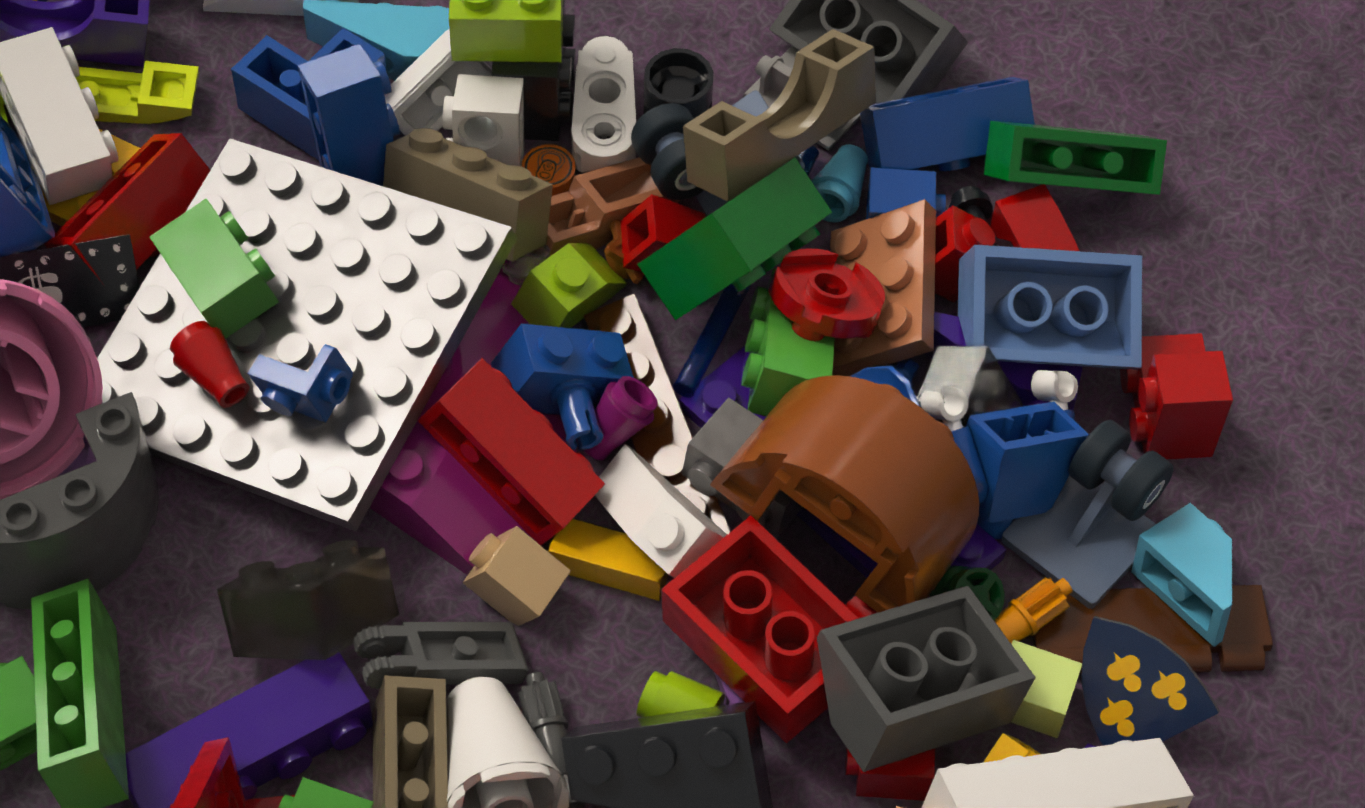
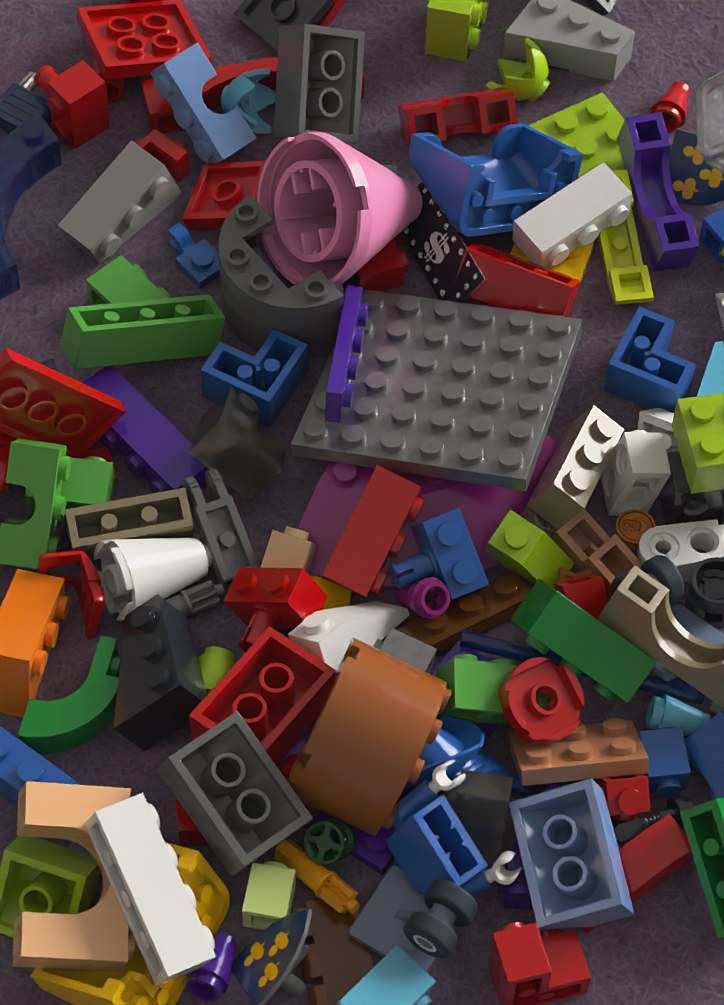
camera: 80 degrees right, 0 degrees up
(196, 556) = (266, 378): none -> blue brick
(208, 361) = (389, 341): red cone -> none
(215, 269) = (459, 325): bright green brick -> none
(227, 422) = (344, 364): none -> dark purple plate
(308, 393) = (372, 390): blue bracket -> none
(350, 112) = (603, 375): blue brick -> none
(593, 598) = (272, 599): none -> red brick

